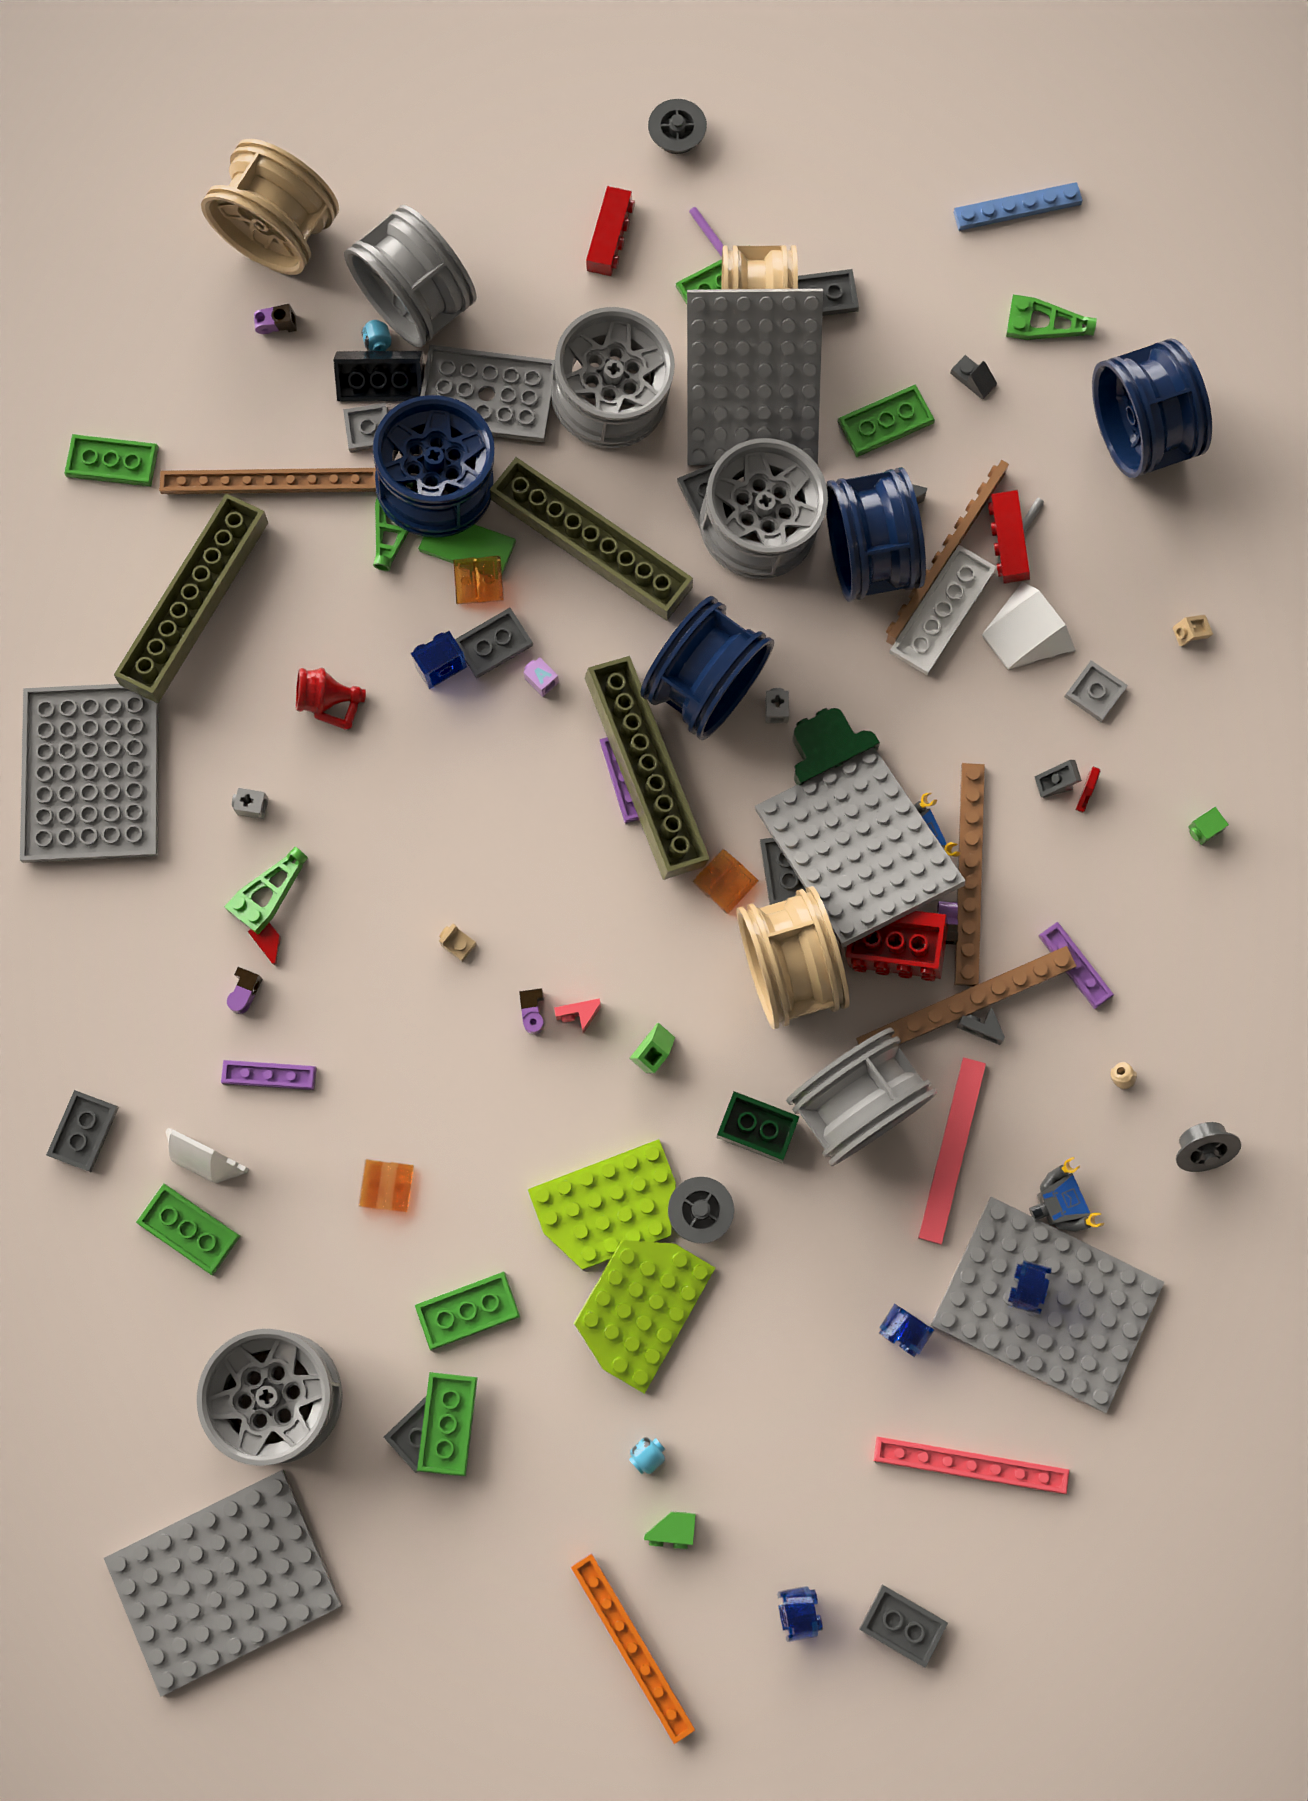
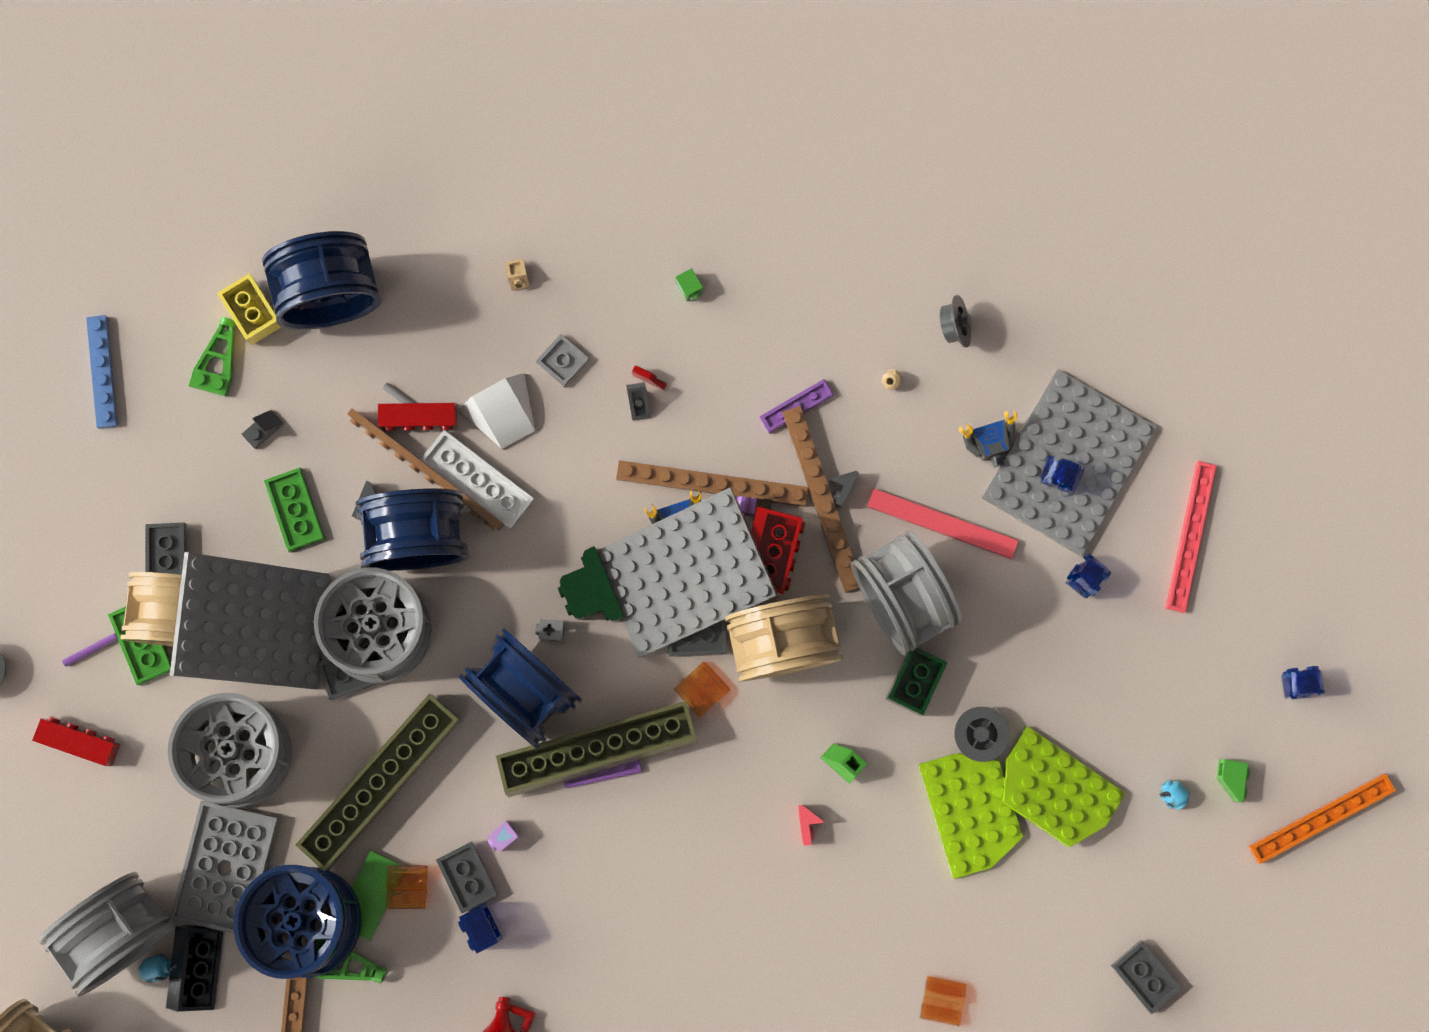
camera: 90 degrees left, 5 degrees up
(362, 424) = (242, 983): light grey tile -> none
(447, 1424) = (1144, 959): bright green tile -> none
(456, 942) = (736, 926): tan bracket -> none
(467, 1311) = (1050, 936): bright green tile -> none
(531, 1017) = (808, 865): leg -> none
(903, 1626) = (1311, 602): dark grey plate -> none
(1108, 339) = (249, 309): none -> light yellow brick

